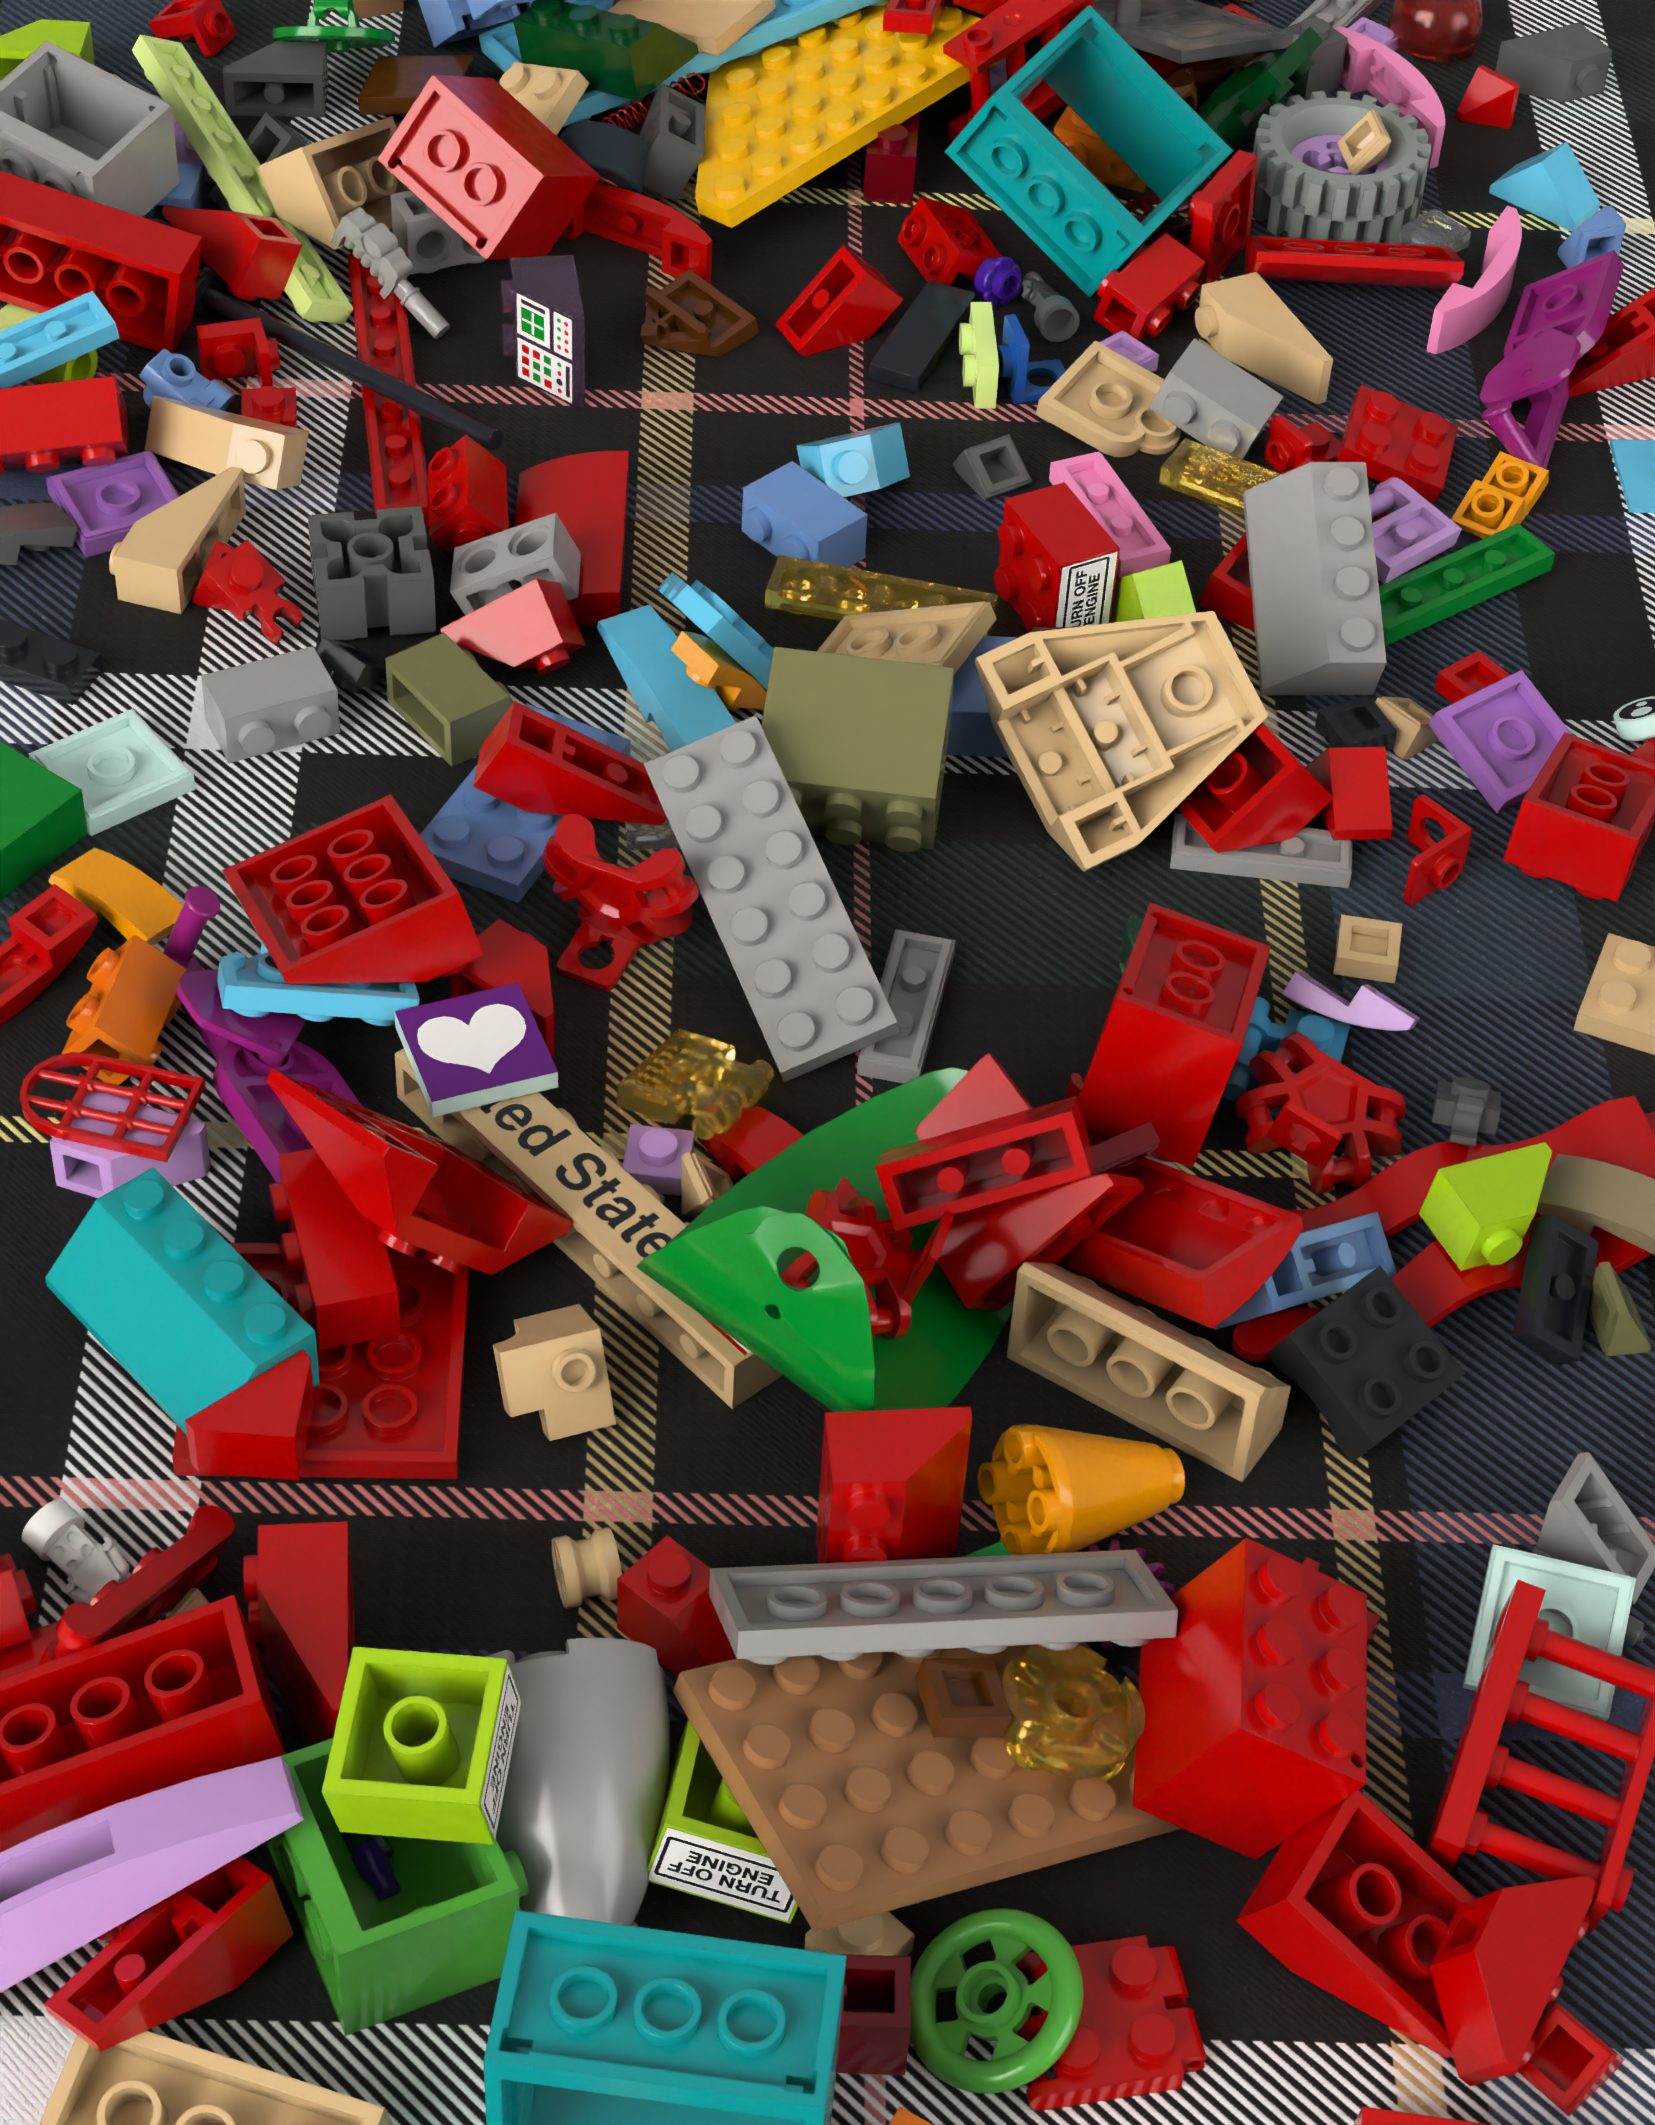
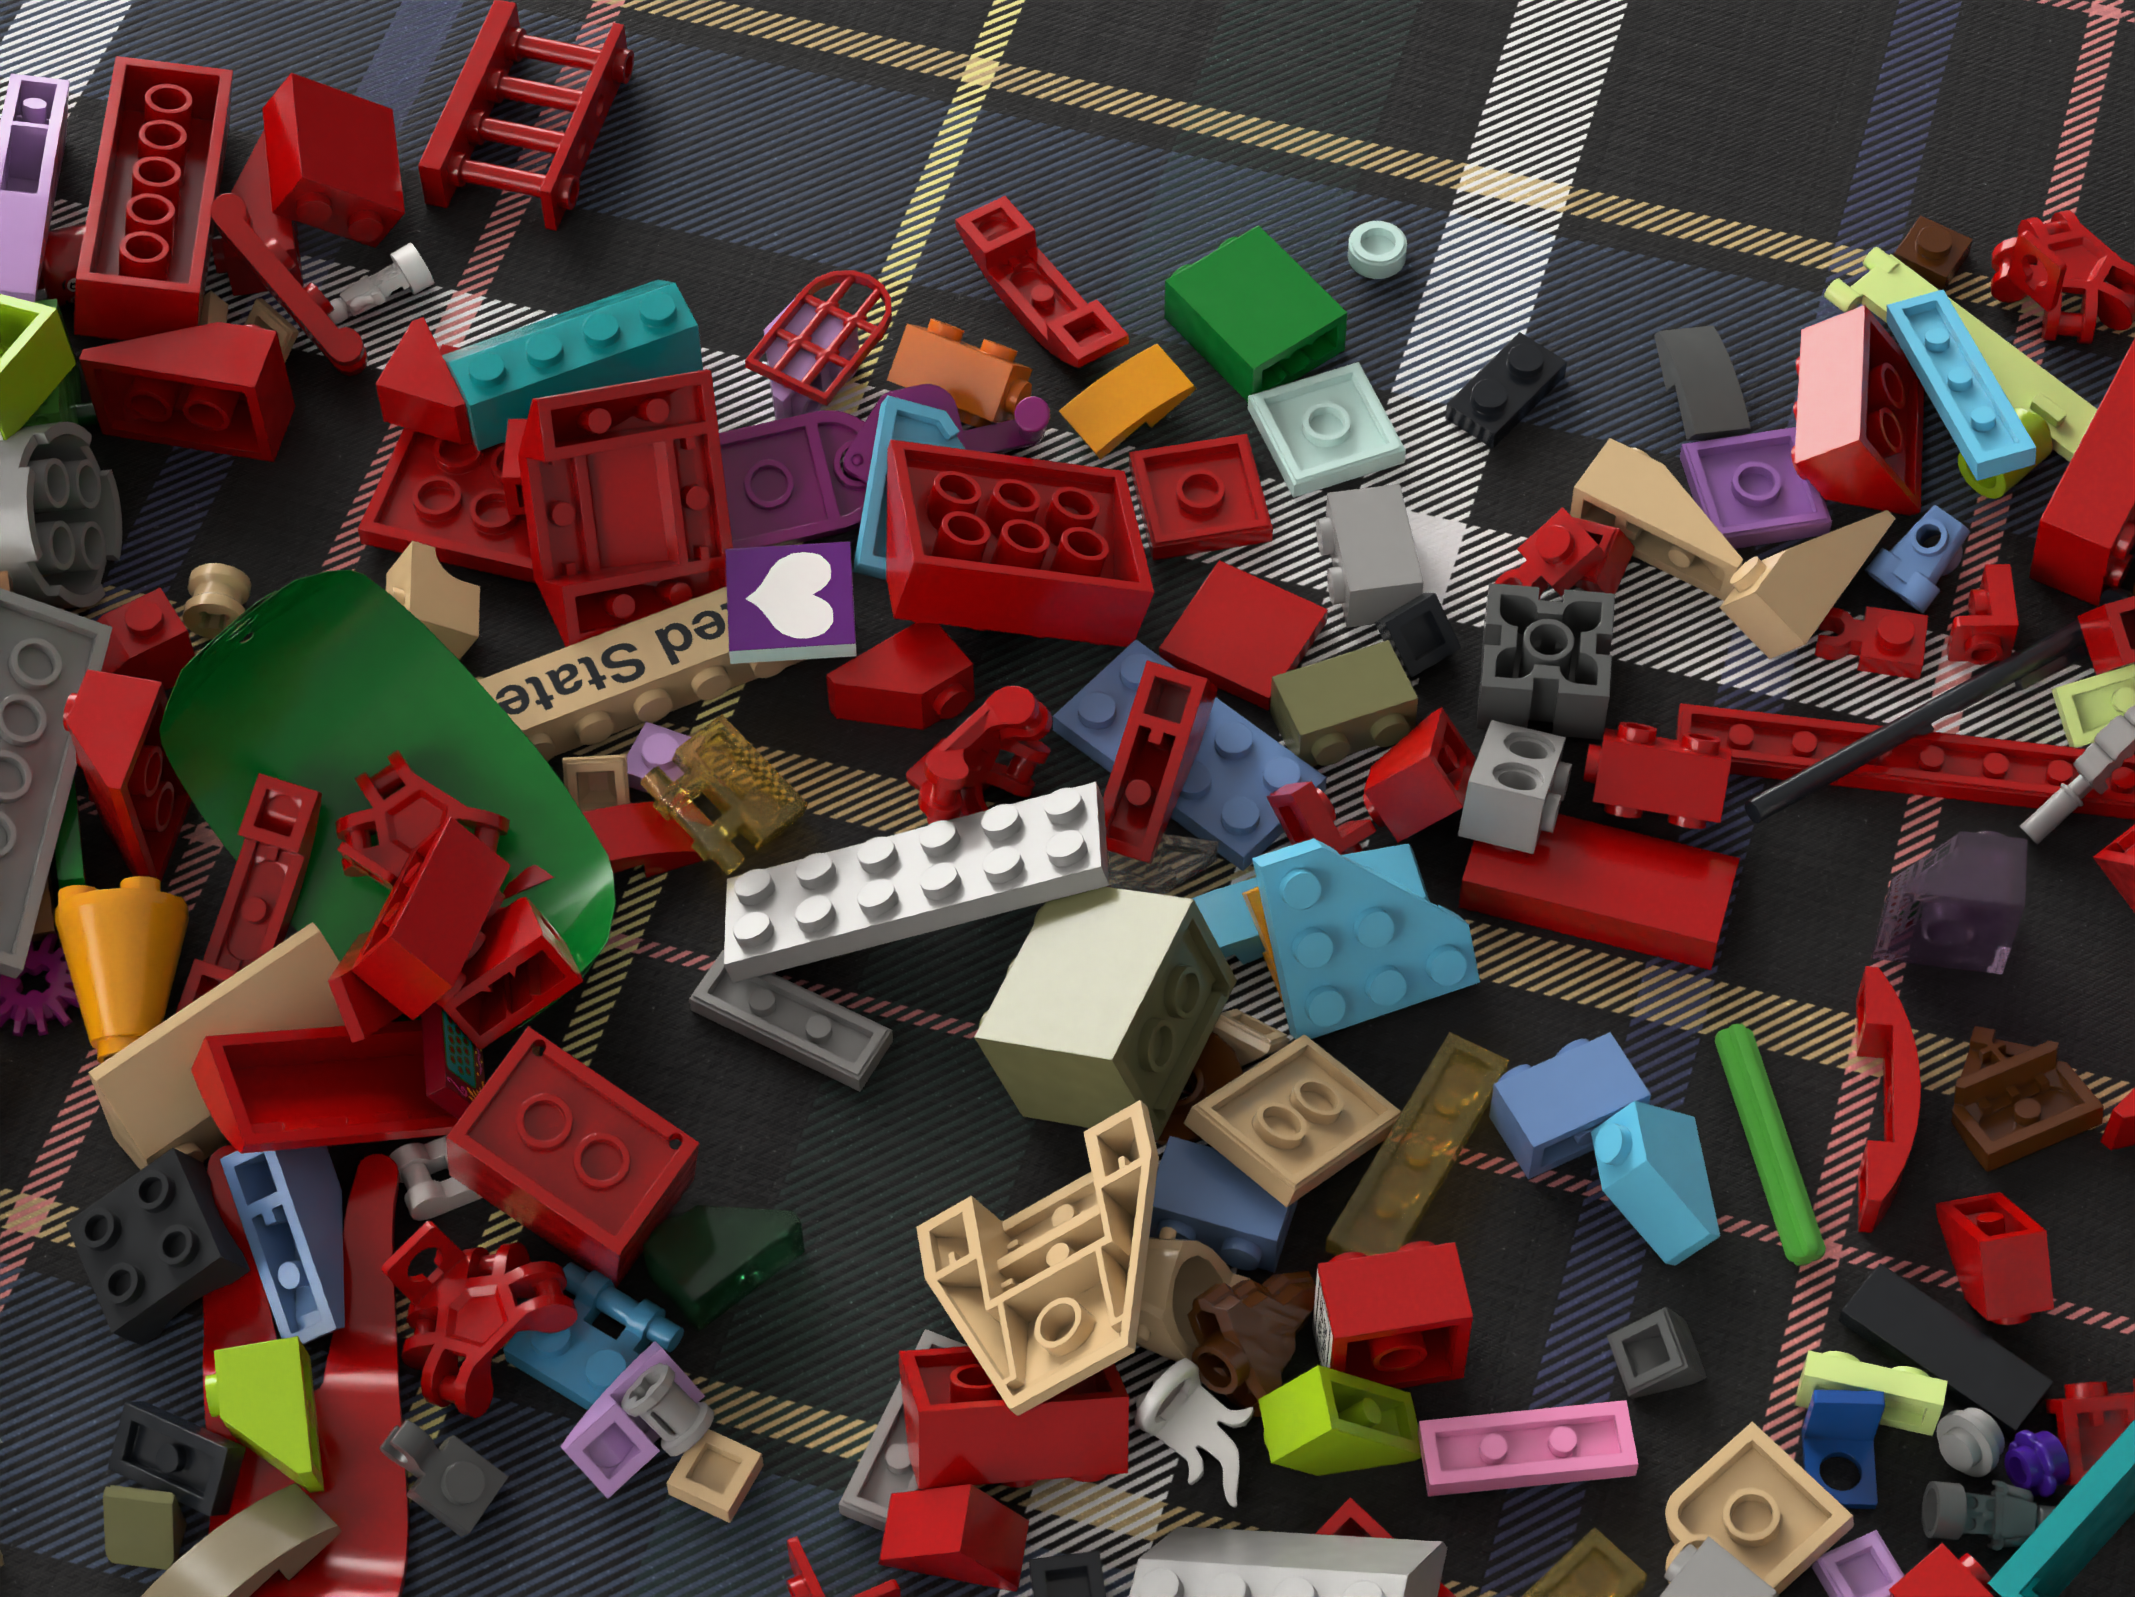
camera: 110 degrees right, 10 degrees up
(209, 834) = (1200, 496): none -> red tile
(370, 767) = (1242, 633): none -> red tile
(591, 688) = (1309, 814): none -> red bracket
(729, 361) = (1886, 1034): none -> red slope
(785, 429) = (1770, 1145): none -> bright green axle
(913, 1383) = (264, 883): none -> red slope
(1003, 304) = (1970, 1441): none -> light grey plate
(1348, 948) = (667, 1409): none -> light grey bush

